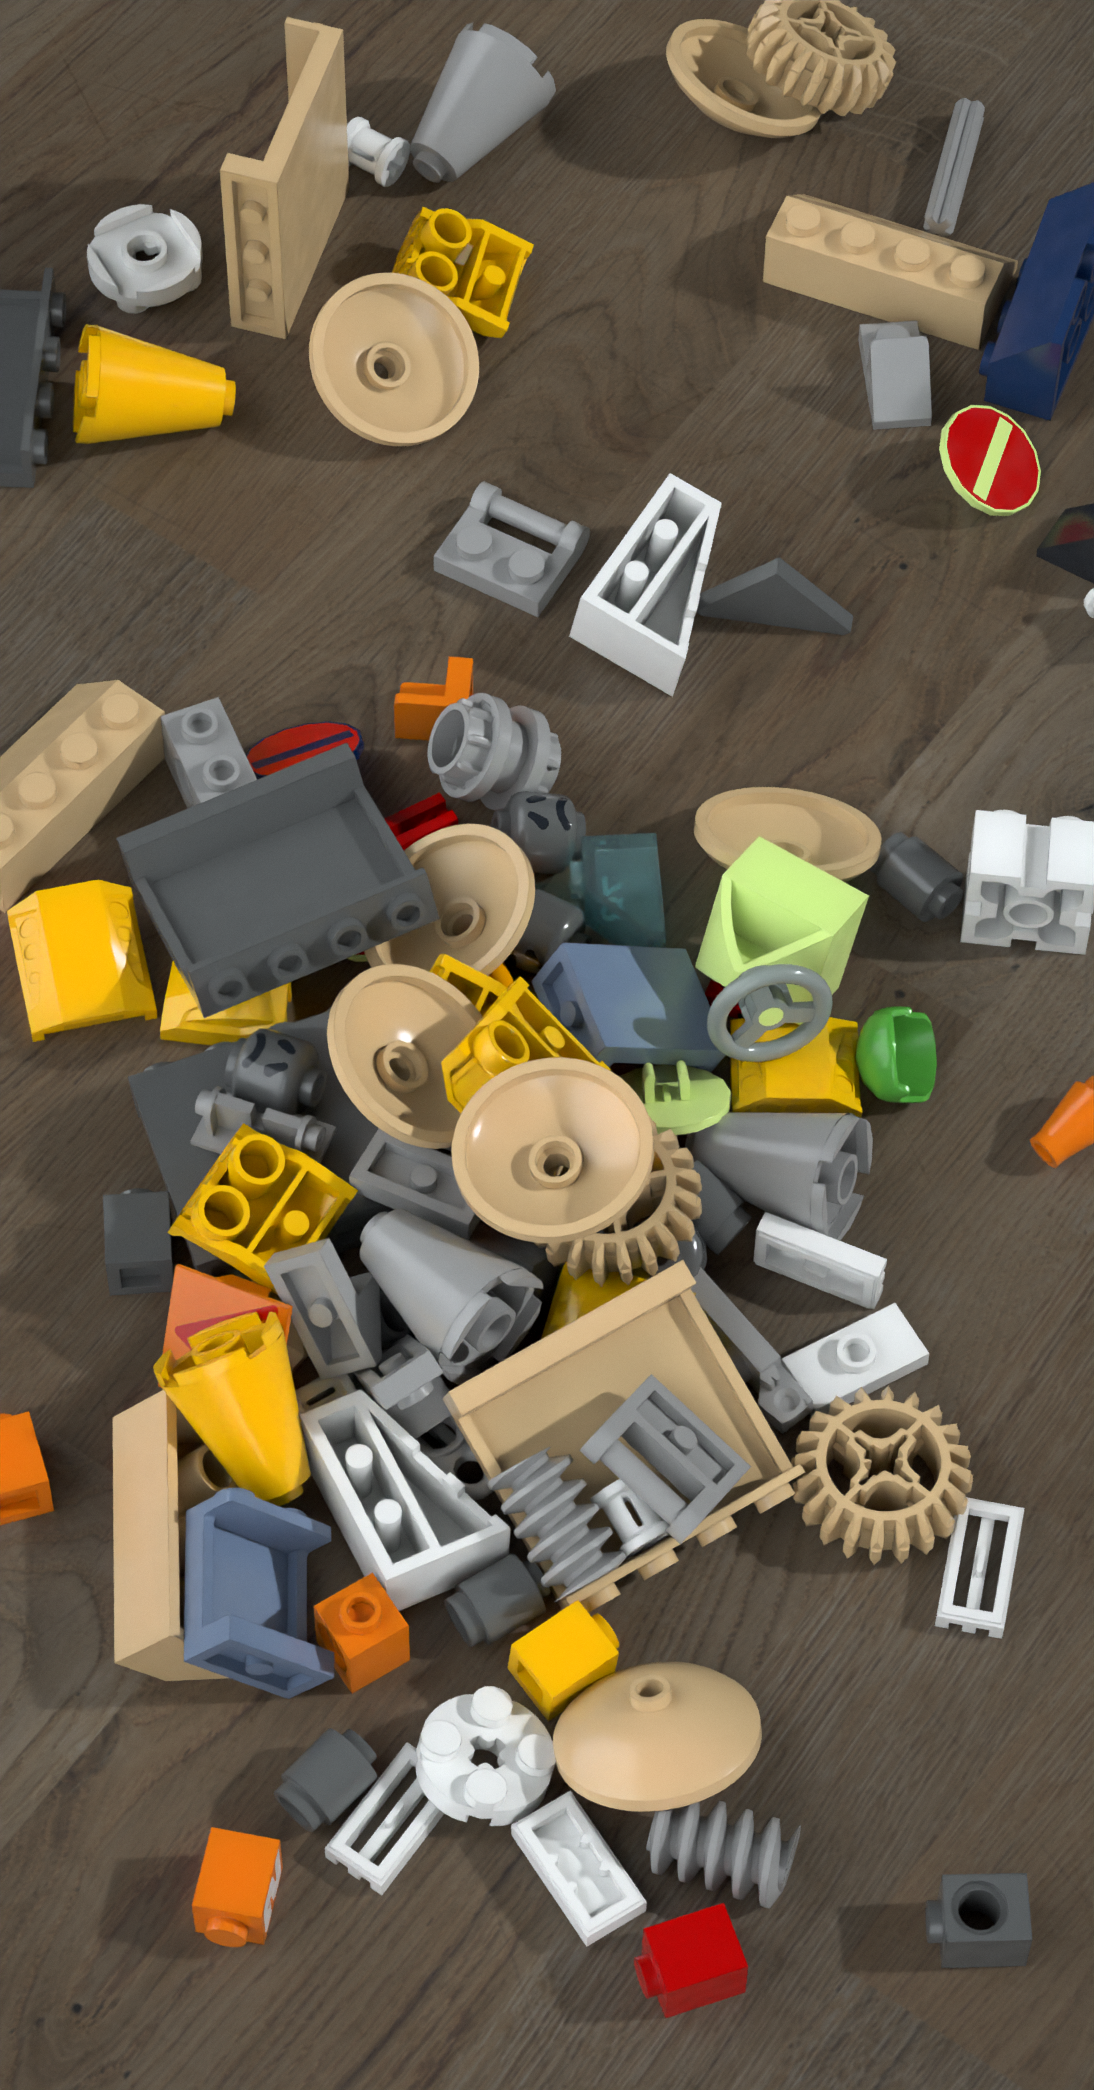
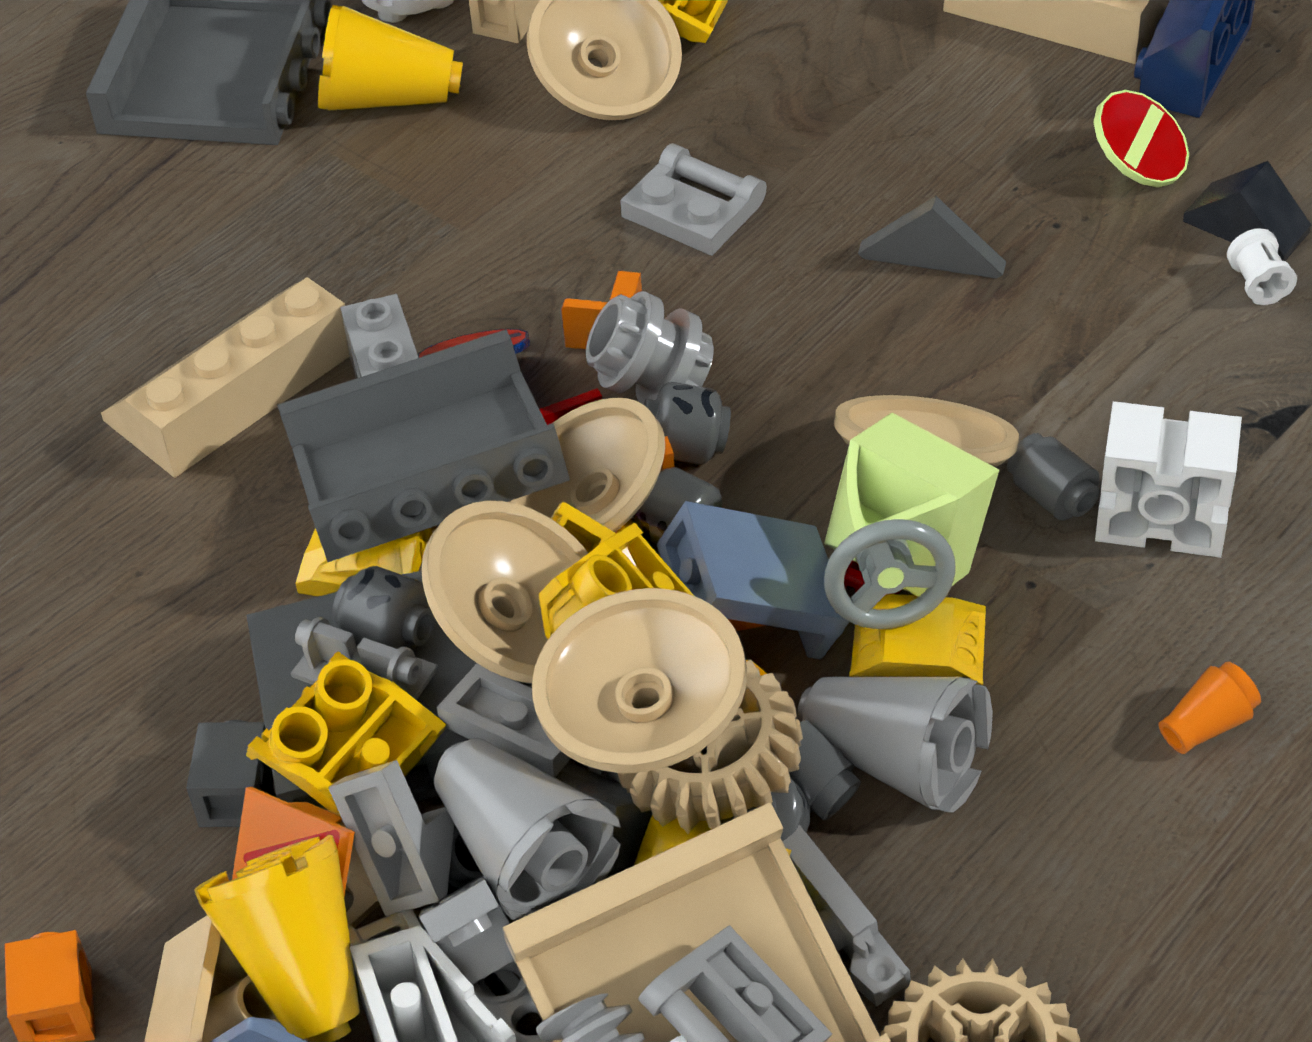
camera: 10 degrees right, 10 degrees down
(80, 957) = (231, 513): yellow slope -> none
(620, 888) = (758, 468): clear light blue slope -> none
(651, 585) = (813, 223): white wedge -> none
(680, 1096) = (796, 659): yellowish green piece -> none
(819, 1260) = (929, 829): white tile -> none
(856, 1357) = (970, 926): white plate -> none
(896, 374) = (1058, 76): light grey slope -> none
(897, 1055) = (1024, 634): bright green hair -> none

